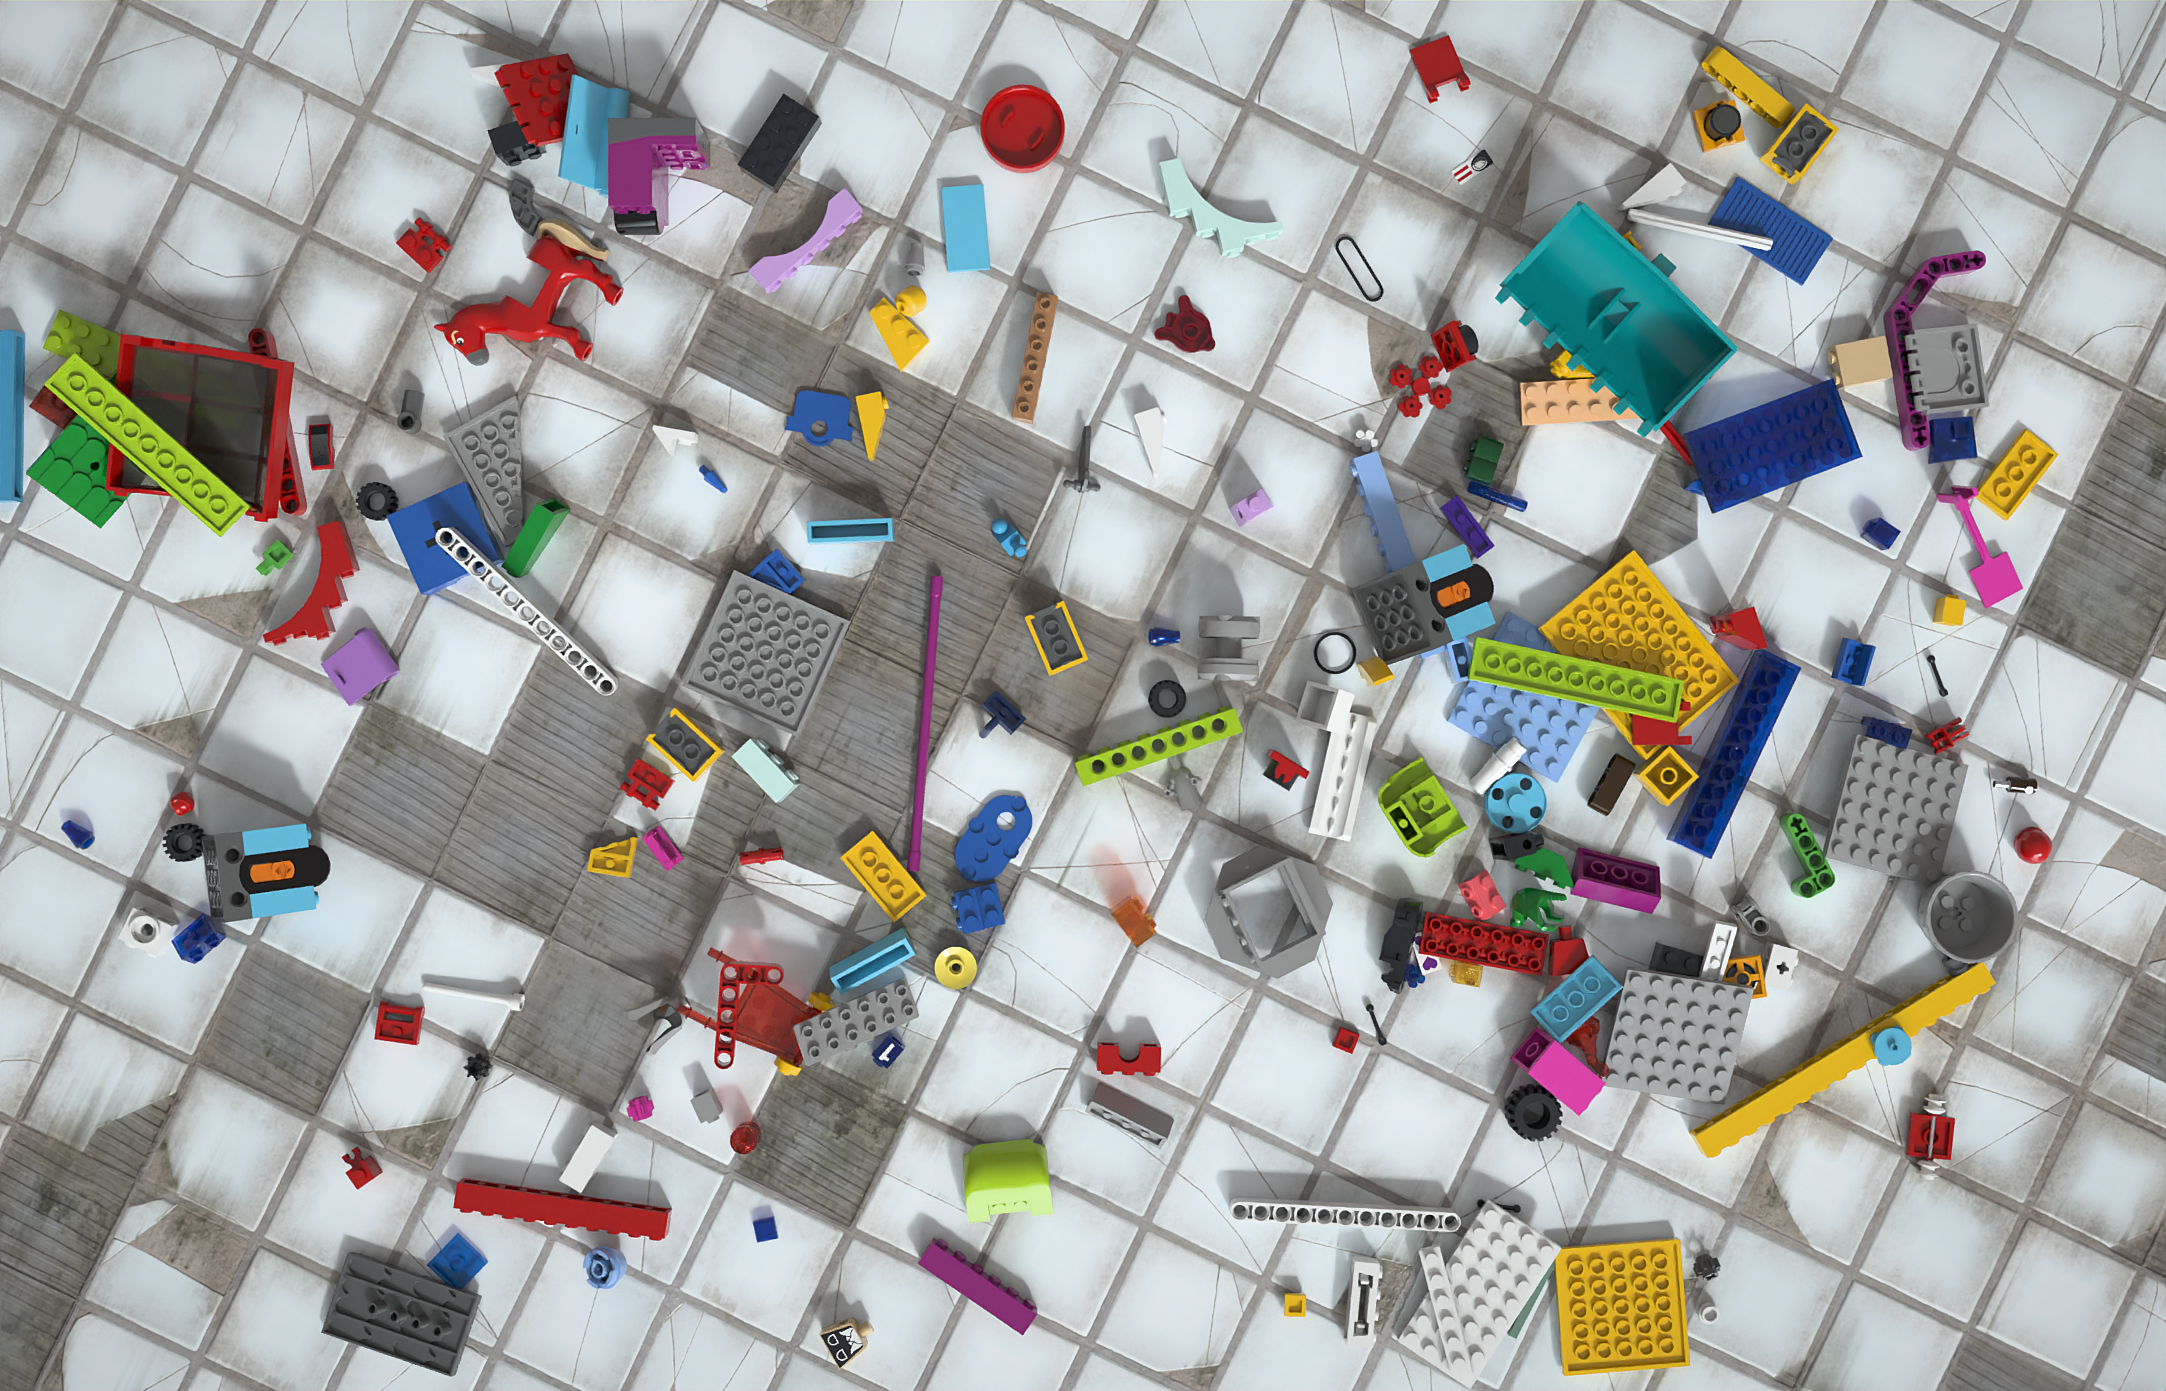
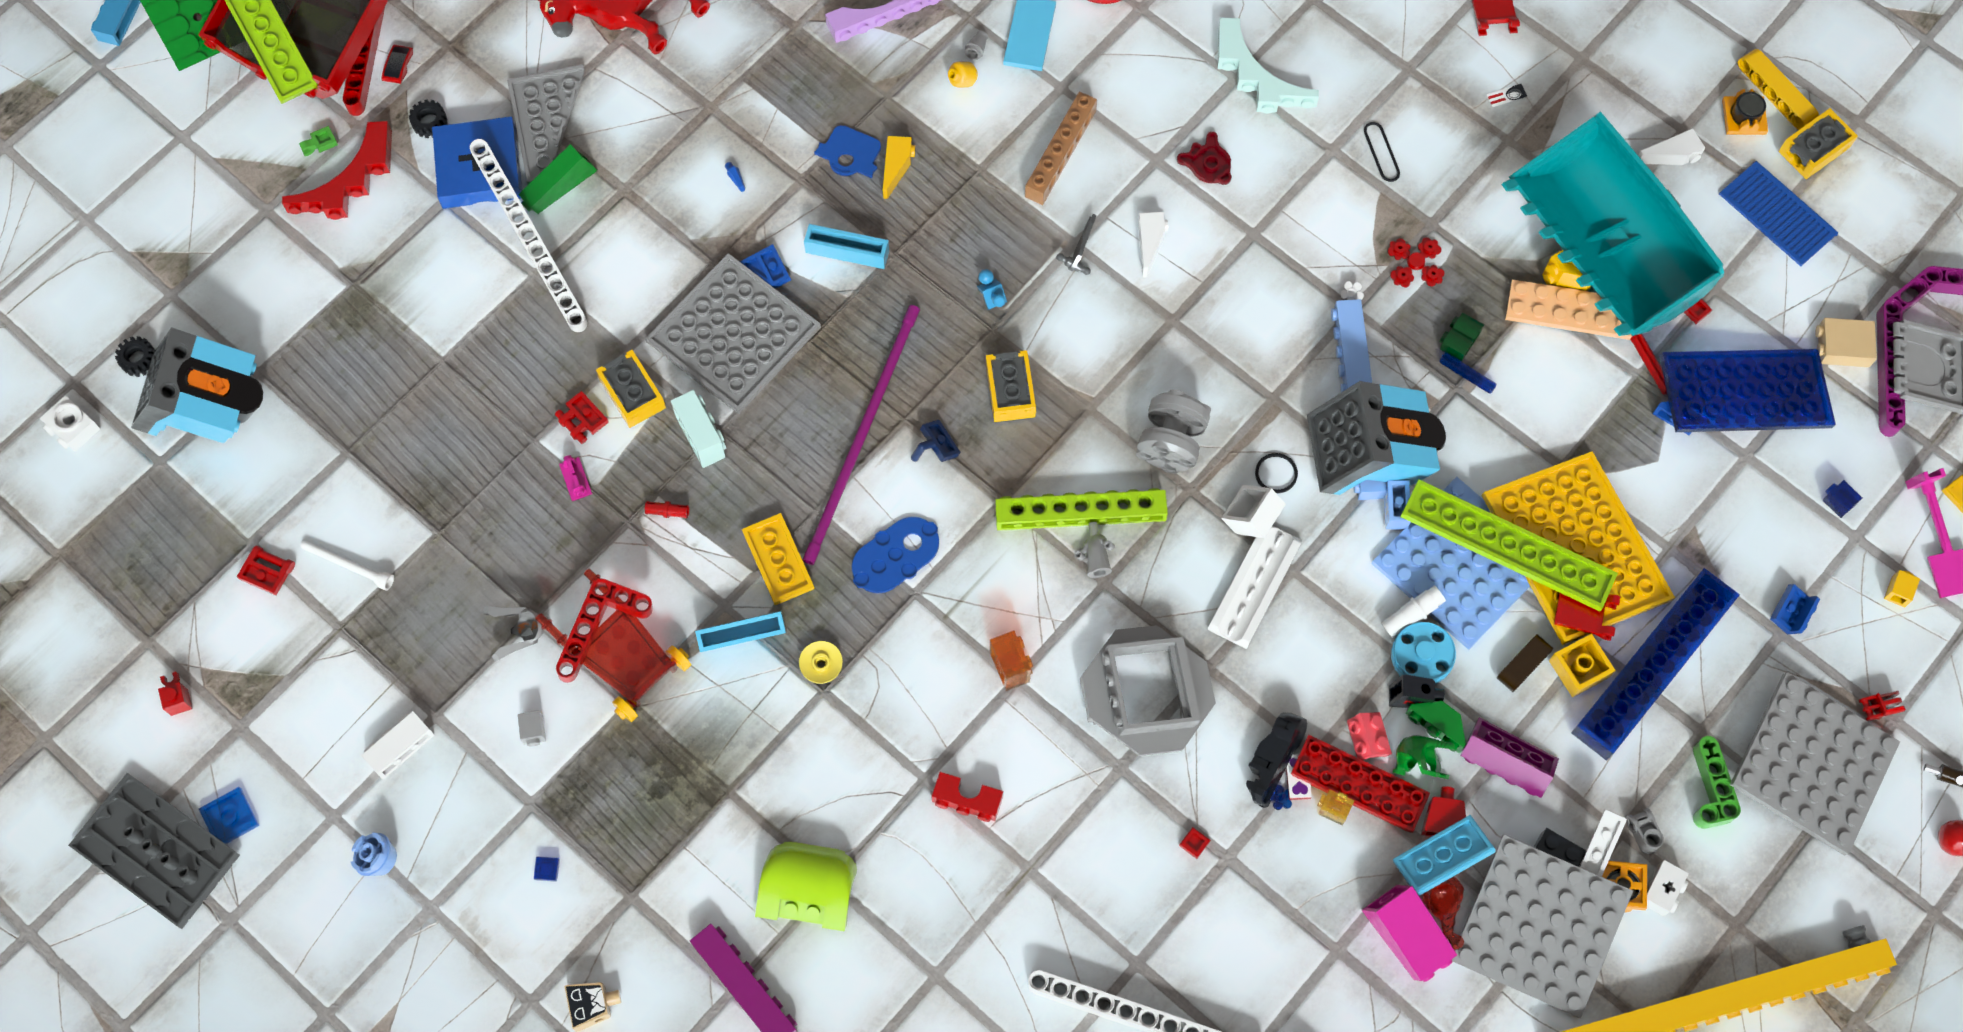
camera: 15 degrees right, 20 degrees down
(79, 836) = (44, 326): clear blue cone -> none
(182, 803) = (148, 321): red piece -> none
(197, 939) = (111, 444): clear blue bracket -> none
(360, 666) = (358, 248): medium lavender door -> none
(411, 408) = (484, 58): dark grey piece -> none
(472, 1071) = (321, 625): black gear -> none
(562, 1208) = (354, 789): red brick -> none
(614, 859) = (525, 475): yellow wing -> none
(640, 1108) = (465, 711): dark pink gear -> none
(669, 437) = (709, 129): white slope -> none
(745, 1137) = (559, 767): clear red wheel -> none
(855, 1021) = (706, 679): light grey bracket -> none
(887, 1051) = (727, 724): clear blue brick -> none
(898, 333) = (943, 101): yellow wing -> none
(978, 908) = (860, 614): blue plate -> none
(1130, 1116) = (951, 857): light grey panel -> none
(1160, 637) = (1112, 413): clear blue cone -> none
(1180, 698) = (1101, 481): black tyre -> none
(1251, 507) = (1228, 319): lavender torso -> none
(1283, 770) = (1199, 558): red piece -> none
(1374, 671) = (1311, 491): yellow slope -> none
(1382, 1040) = (1232, 854): black hinge -> none
(1419, 809) = (1325, 633): lime piece -> none
(1455, 345) = (1459, 228): red piece -> none
(1466, 527) = (1428, 381): dark purple plate -> none
(1548, 1120) = (1386, 953): black tyre -> none
(1699, 229) = (1713, 194): white axle -> none
(1739, 628) = (1682, 541): red slope -> none
(1887, 732) = (1820, 681): clear blue bracket -> none
(1891, 1046) = (1772, 997): medium azure piece -> none
(1943, 691) = (1884, 664): black hinge -> none
(1952, 439) = (1927, 433): clear blue plate -> none
(1985, 920) = (1892, 872): light grey piece -> none

